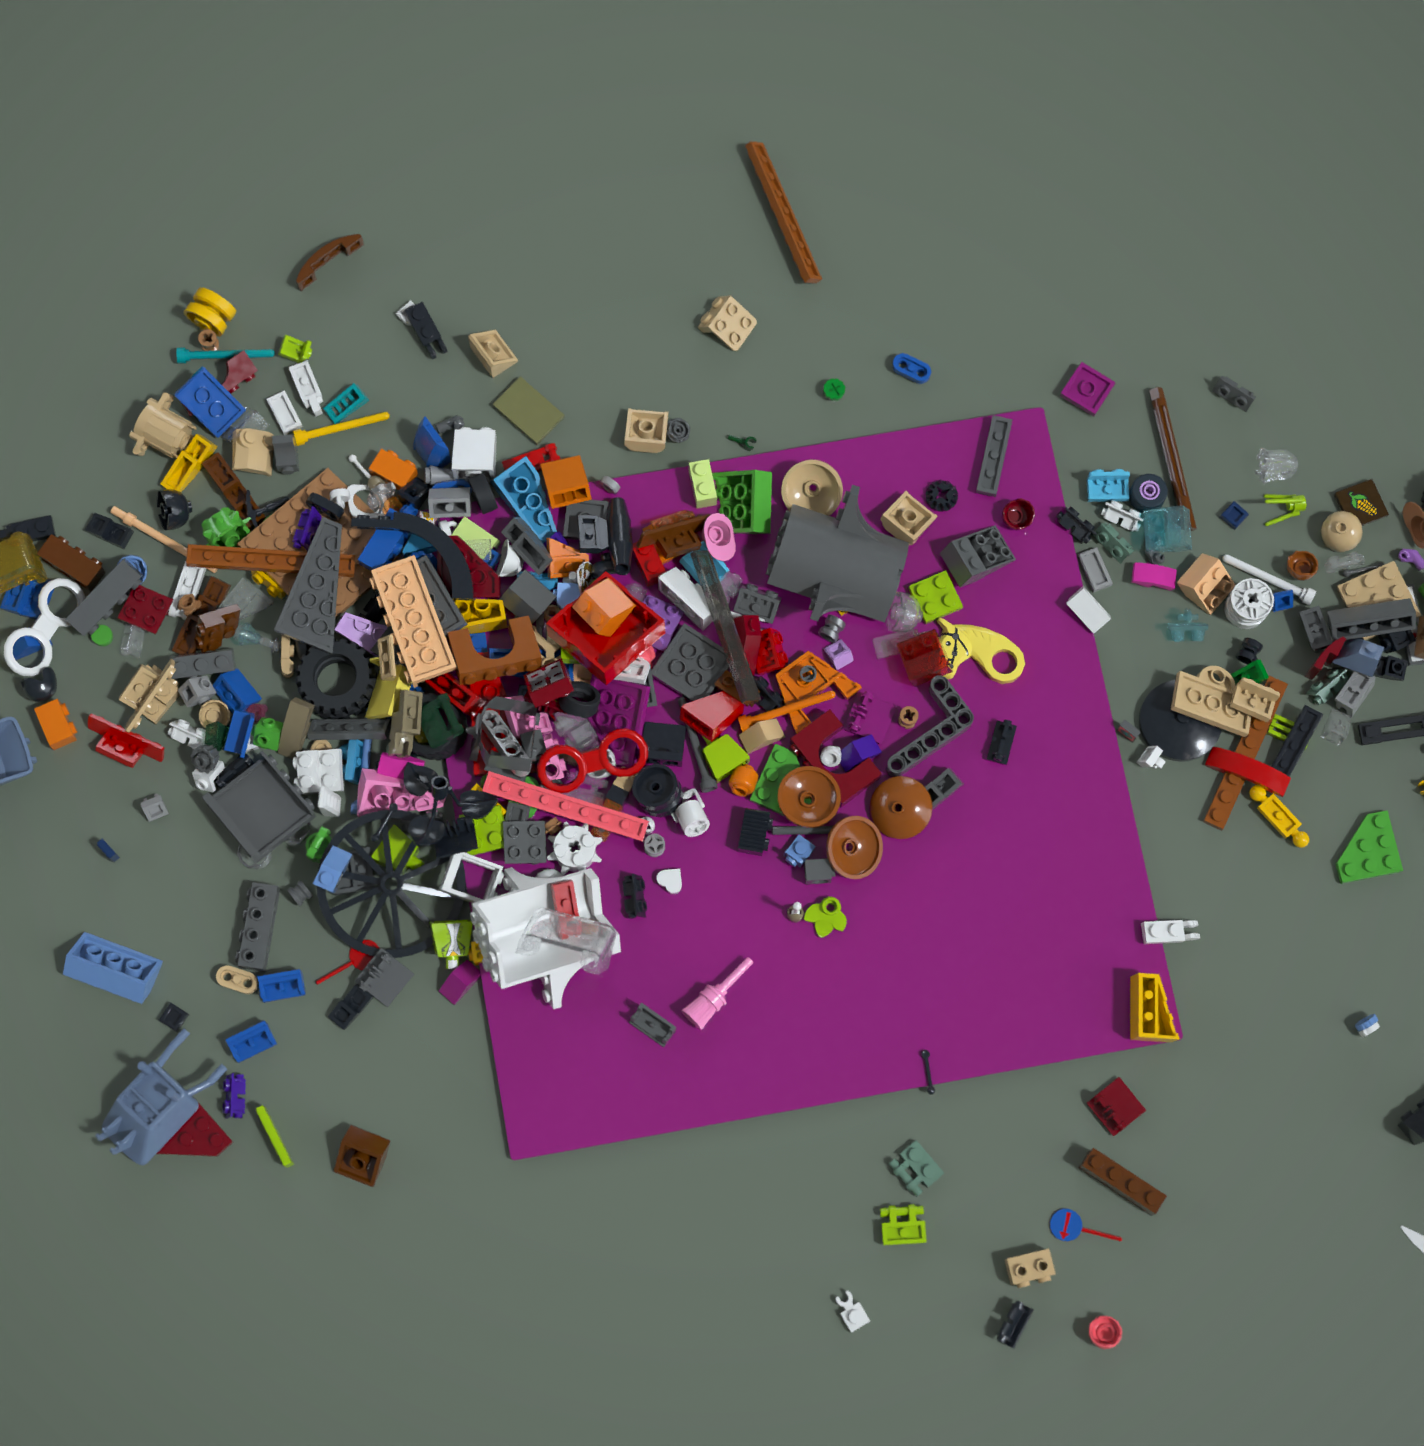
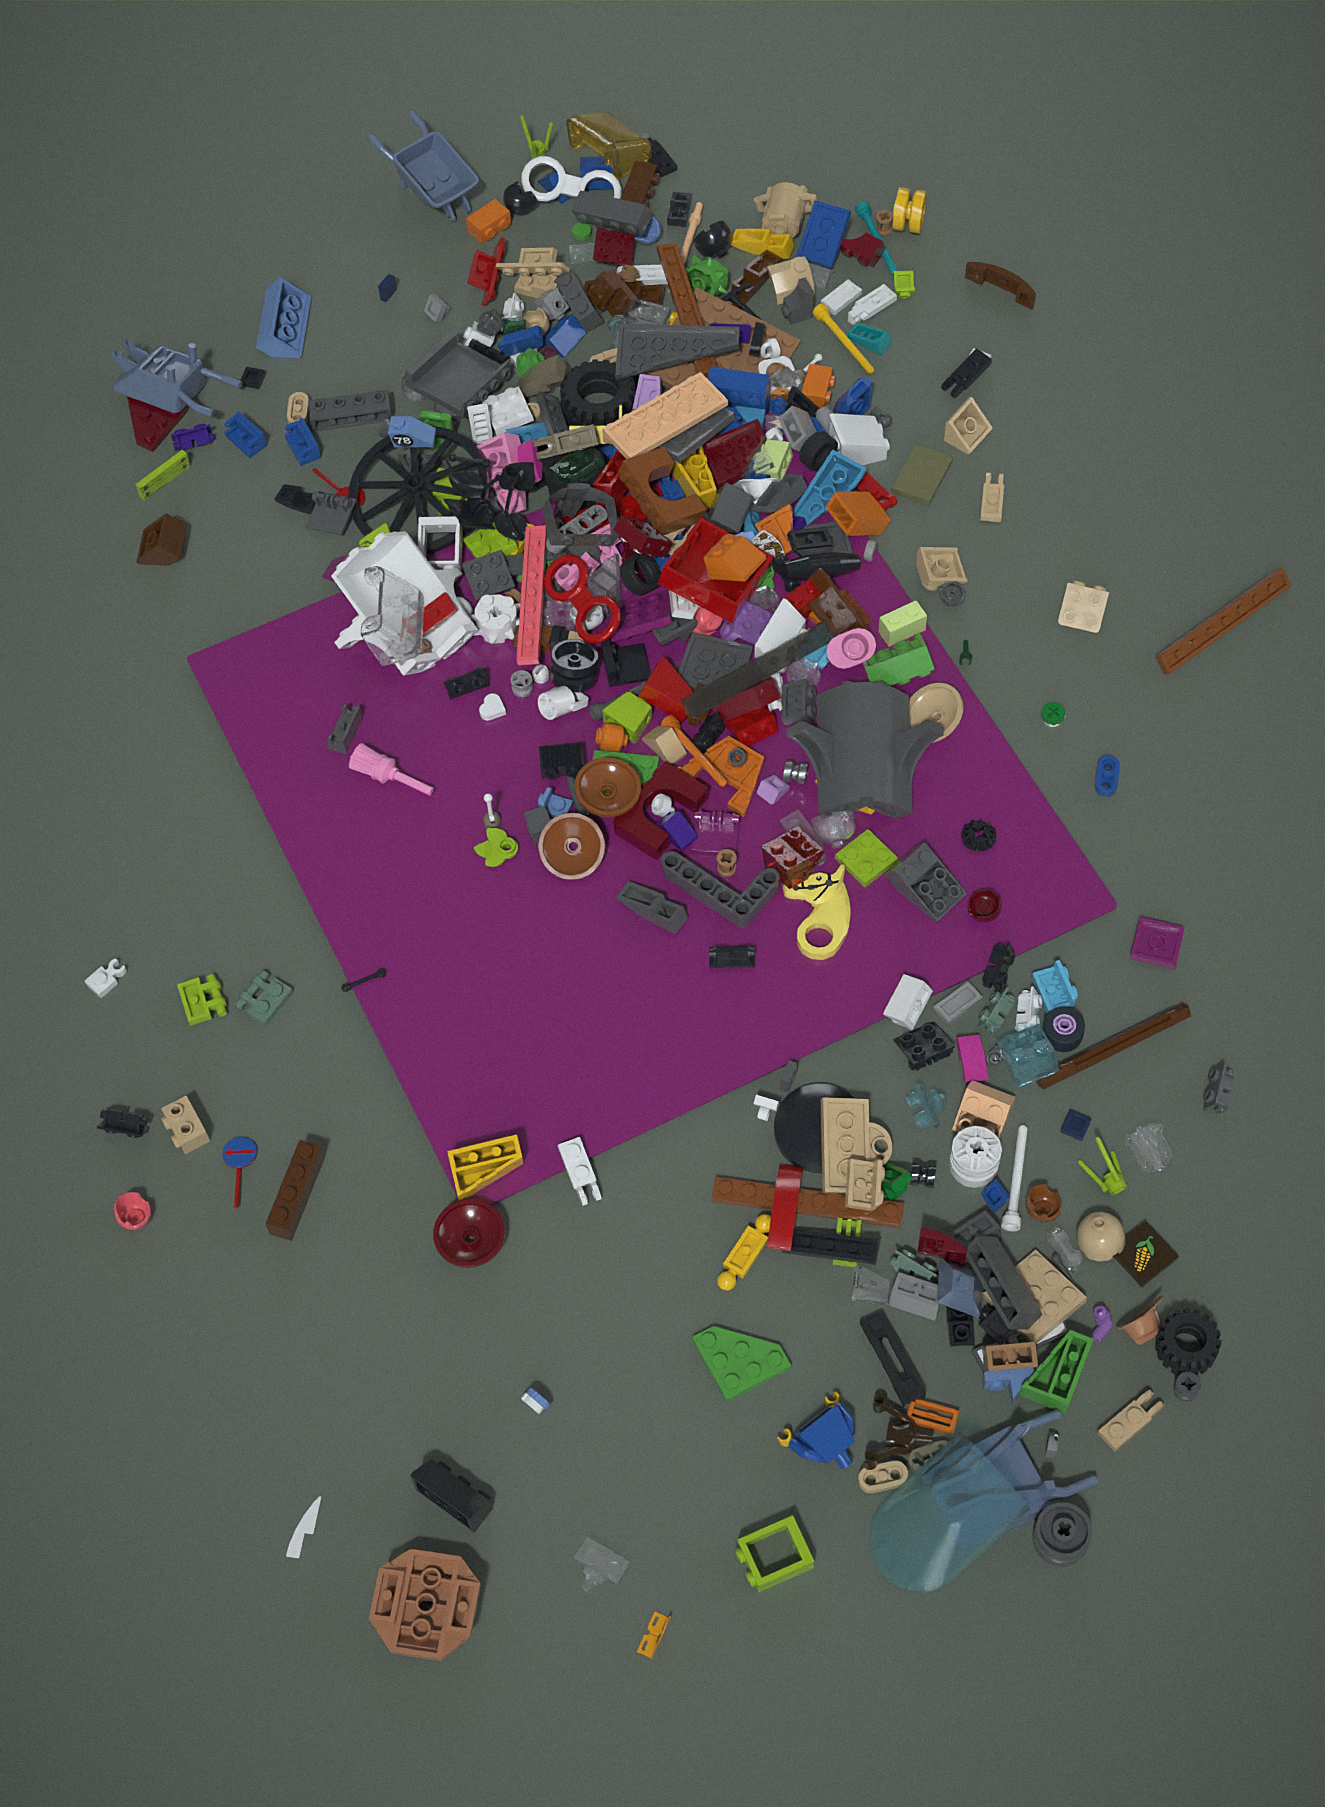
camera: 80 degrees right, 15 degrees down
(387, 658) = (617, 411): tan slope -> none
(458, 567) = (747, 421): black arch -> none
(580, 358) = (992, 499): none -> tan hinge
(907, 518) = (938, 806): tan slope -> none
(915, 807) = (629, 880): dark orange dish -> none
(994, 456) = (1041, 869): dark grey plate -> none
(1116, 1106) = (376, 1168): dark red hinge -> none
(1129, 610) = (923, 1045): none -> black hinge
(1217, 1030) = (466, 1220): none -> dark red dish

